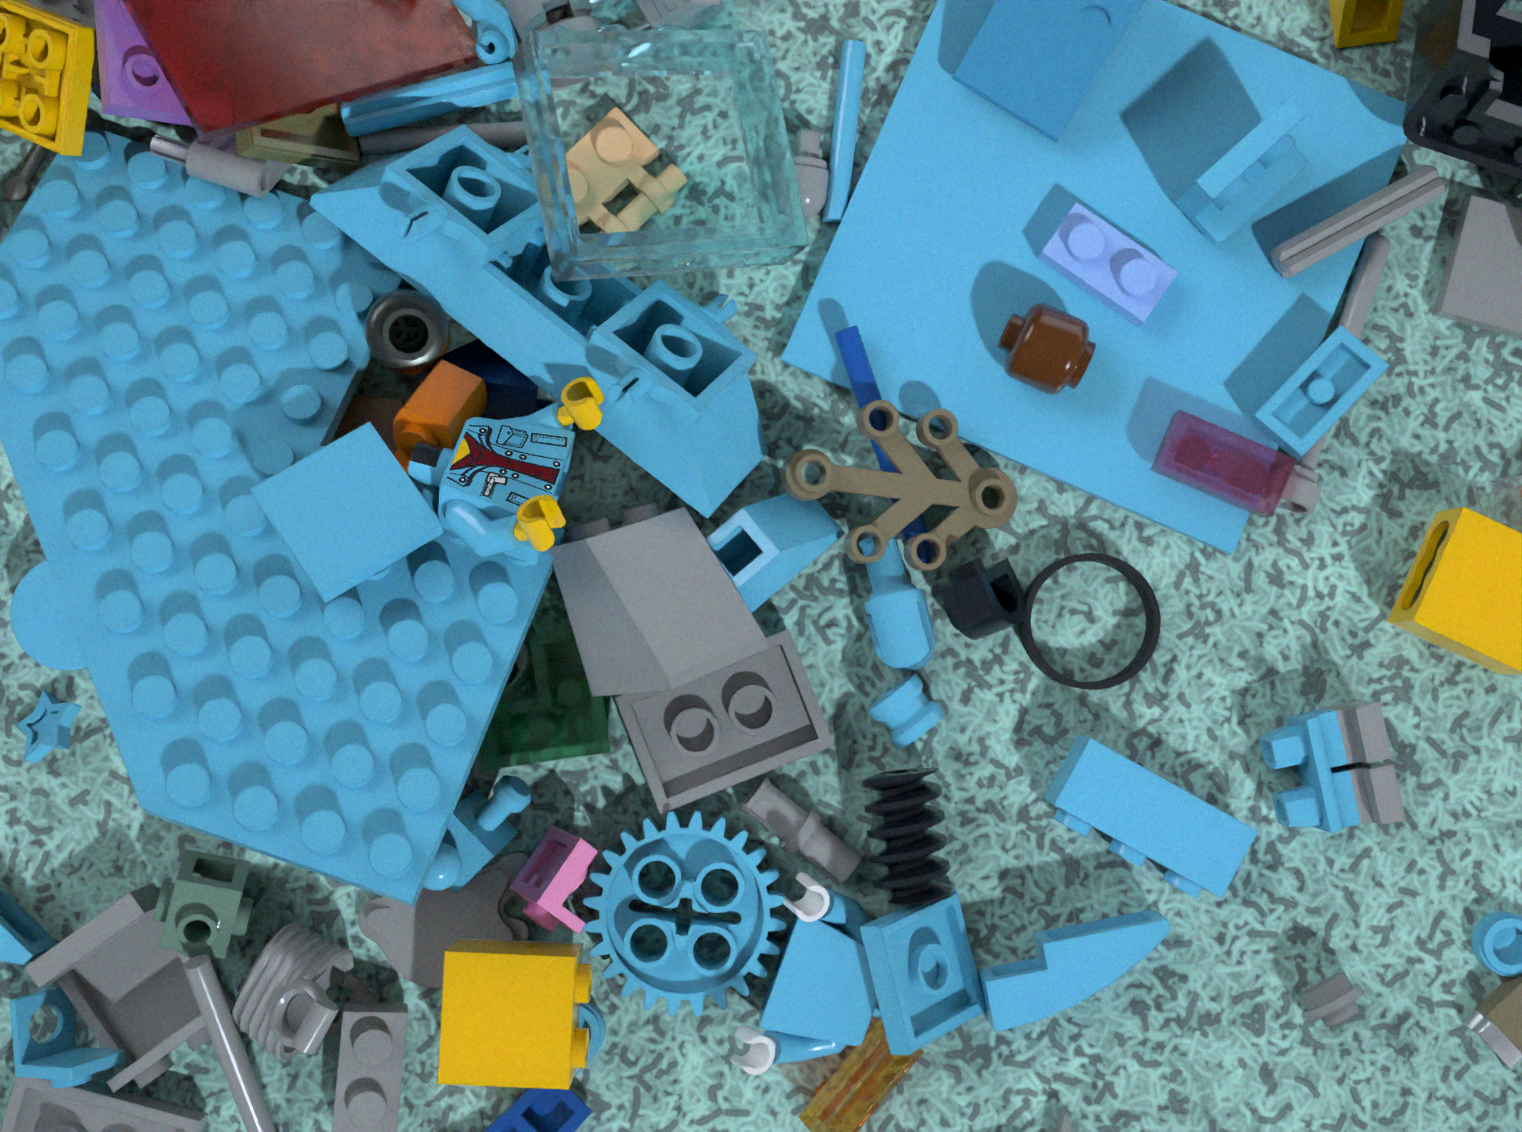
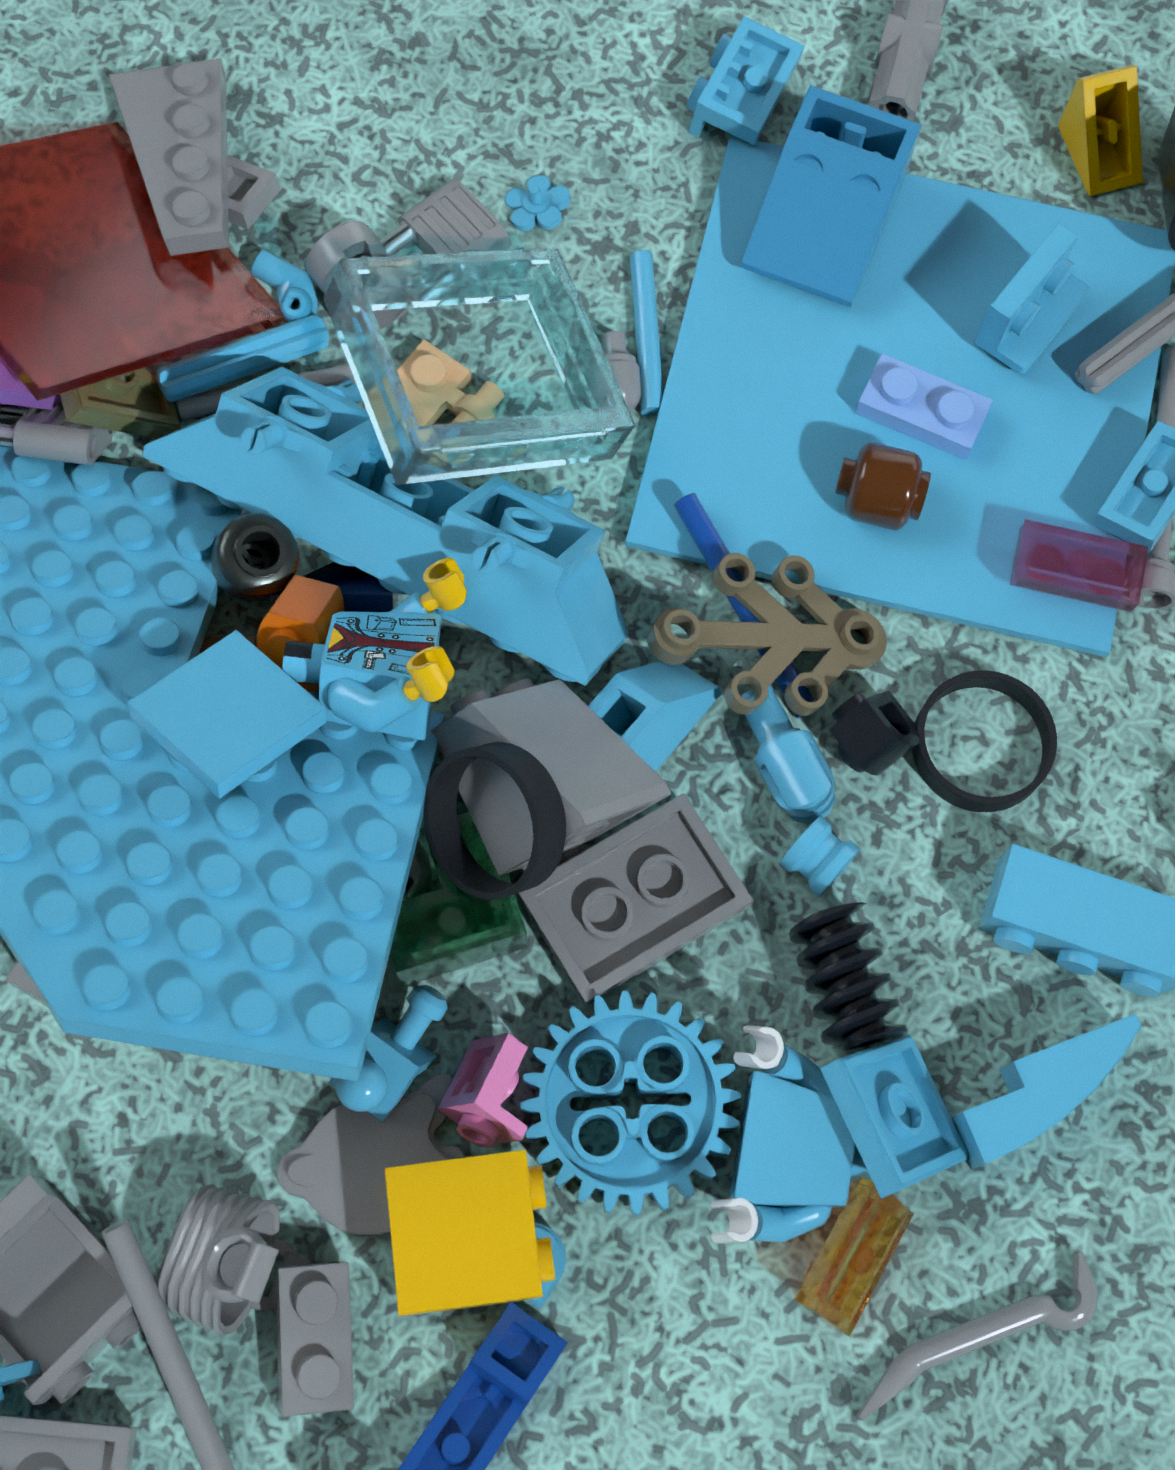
camera: 10 degrees left, 15 degrees down
(204, 905) = (111, 1157): sand green brick -> none
(626, 640) = (444, 831): none -> black tyre
(801, 831) = (734, 996): light grey pin -> none

